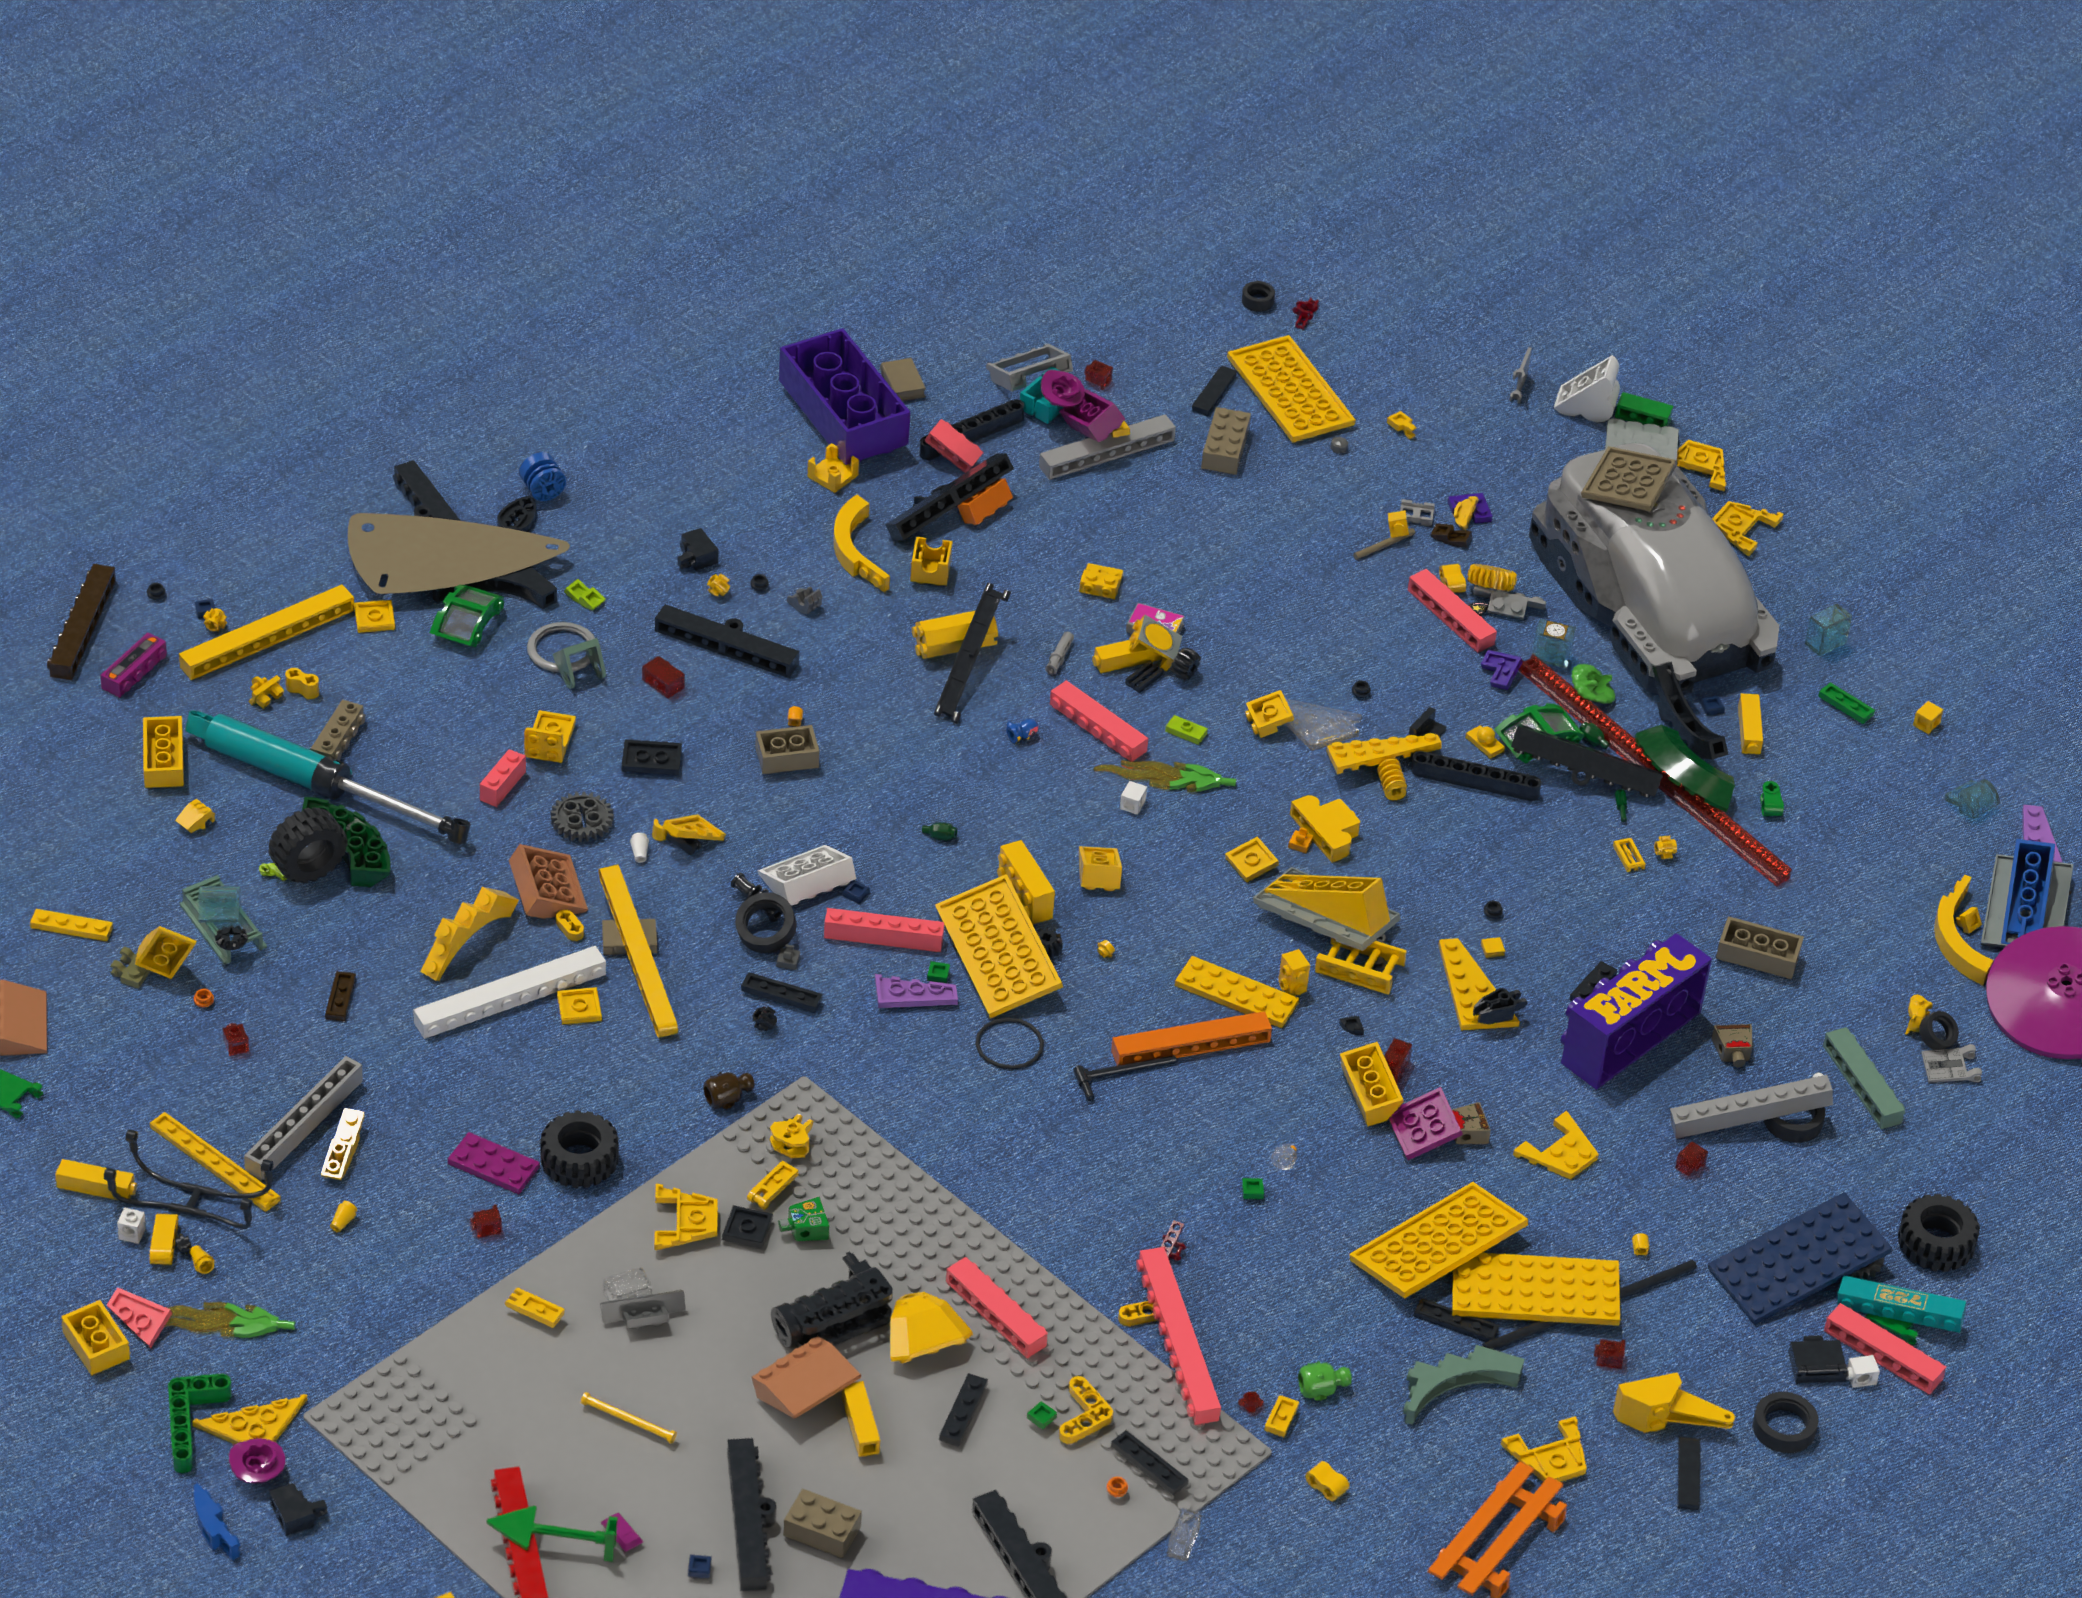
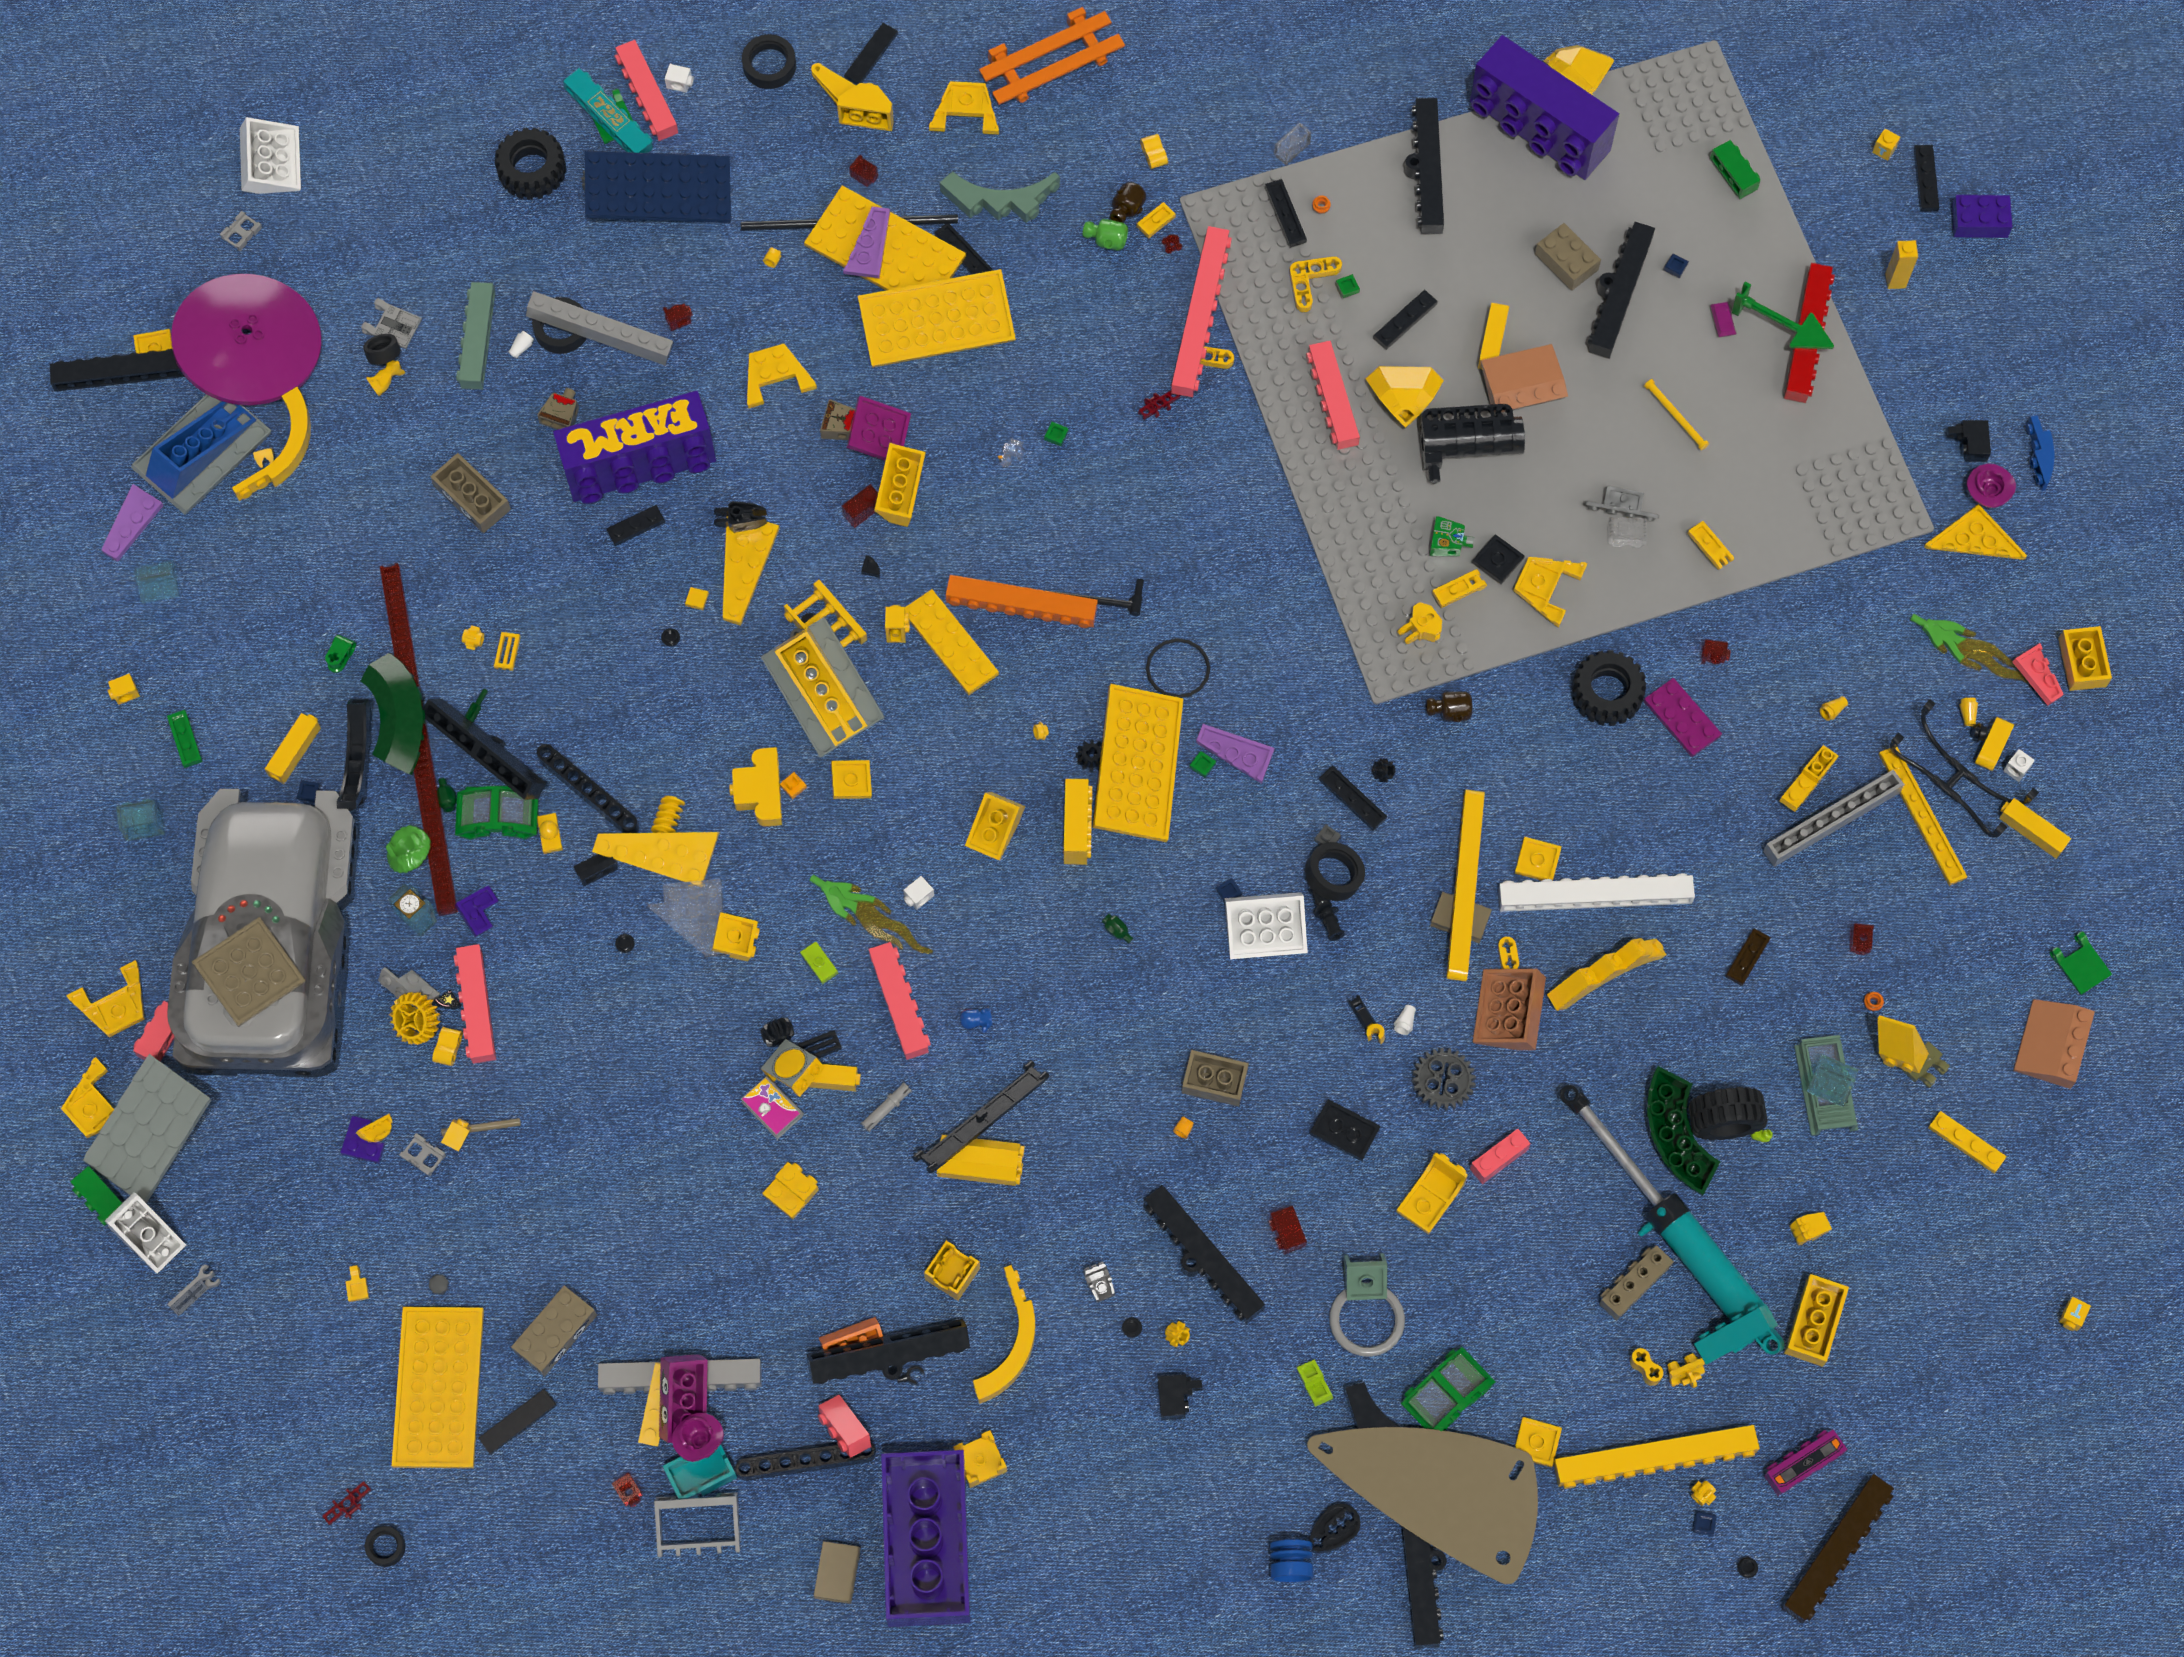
camera: 150 degrees left, 25 degrees up
(186, 1392) = (2034, 560): green beam -> none
(232, 706) = (1735, 1334): none -> teal brick
(238, 941) = (1825, 1043): black gear -> none
(693, 827) = (1350, 1013): yellow wing -> none
(884, 930) = (1229, 827): coral brick -> none
(1321, 1417) = (1127, 202): none -> dark brown piece
(1446, 534) = (408, 1109): dark brown slope -> none
(1548, 1267) = (870, 245): none -> medium lavender wing
(1817, 1360) = (705, 103): black piece -> none

